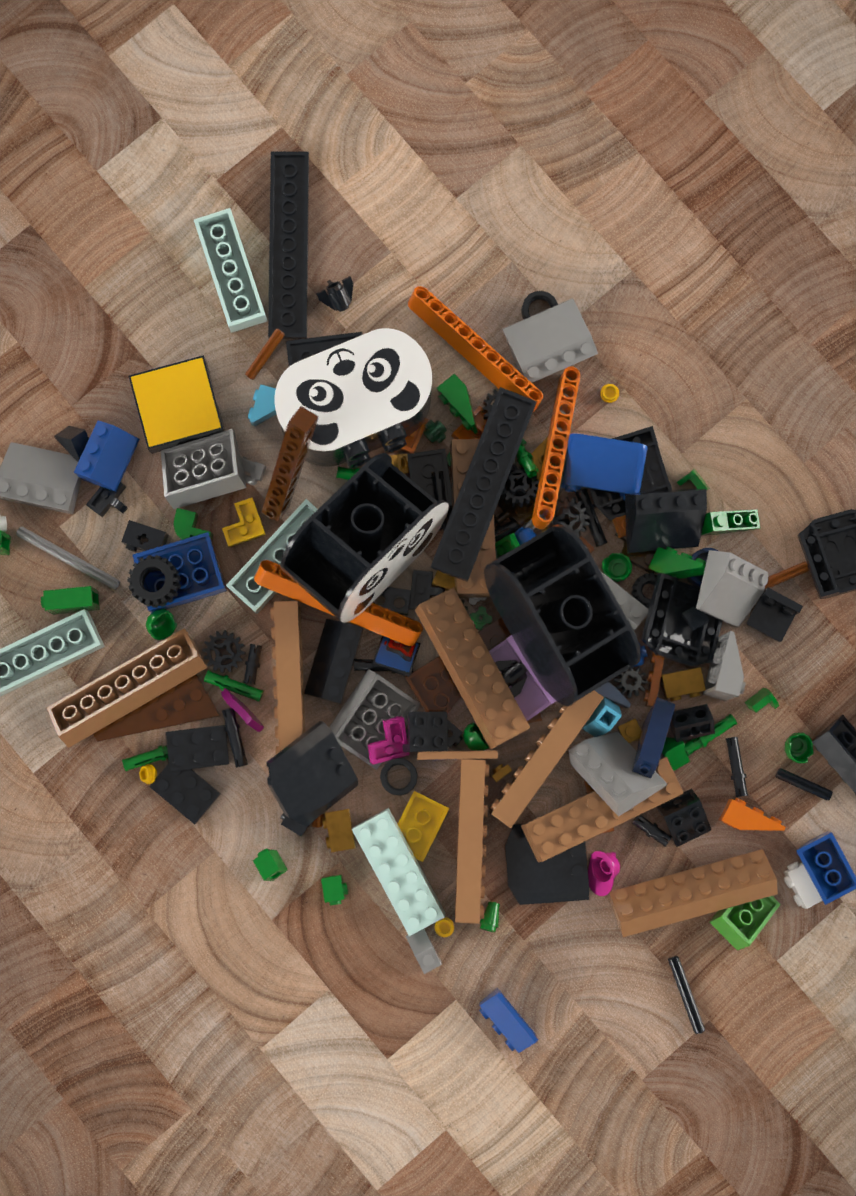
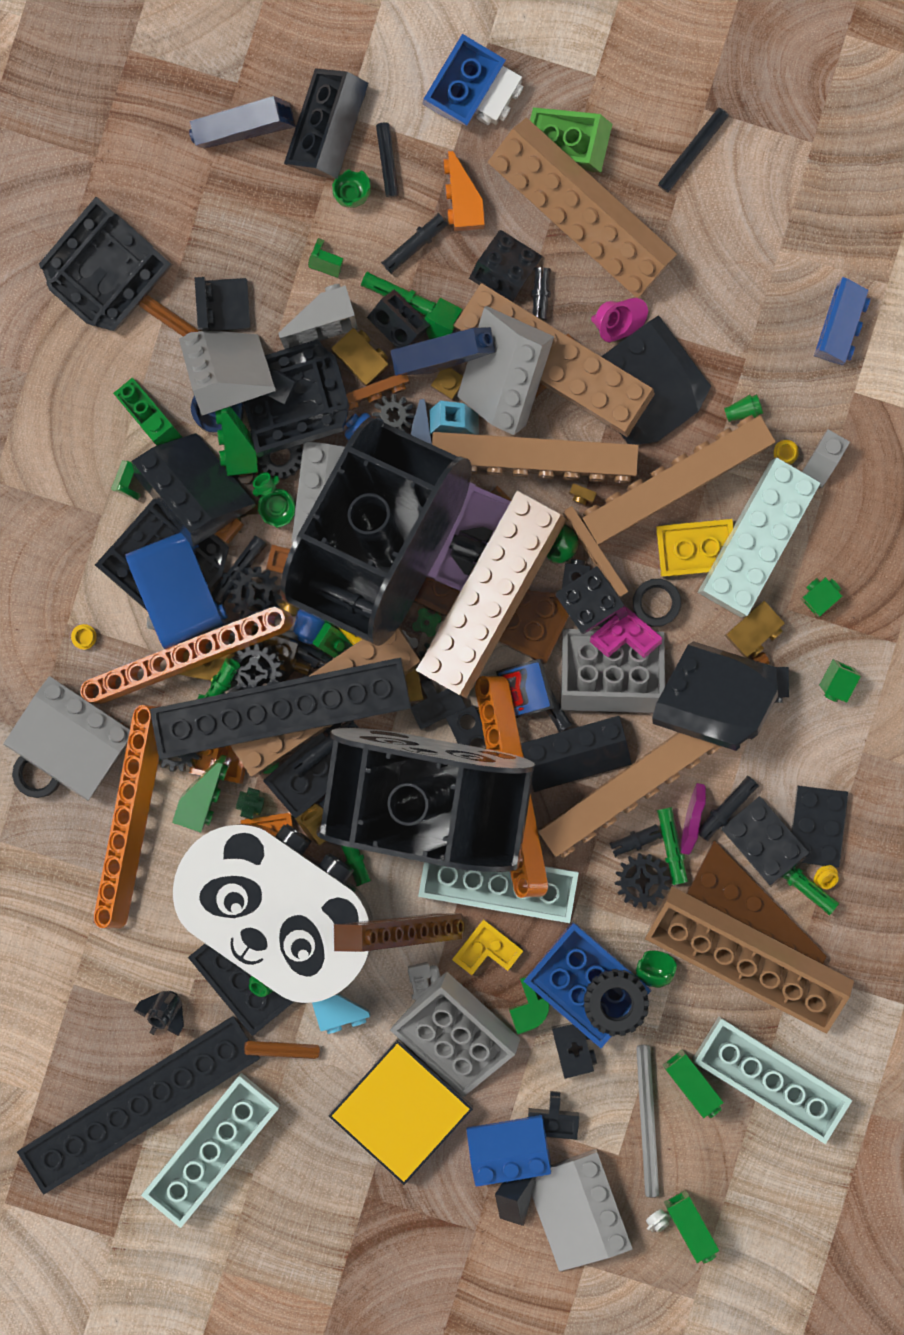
camera: 115 degrees left, 5 degrees up
(636, 568) = (265, 484): none -> green plate

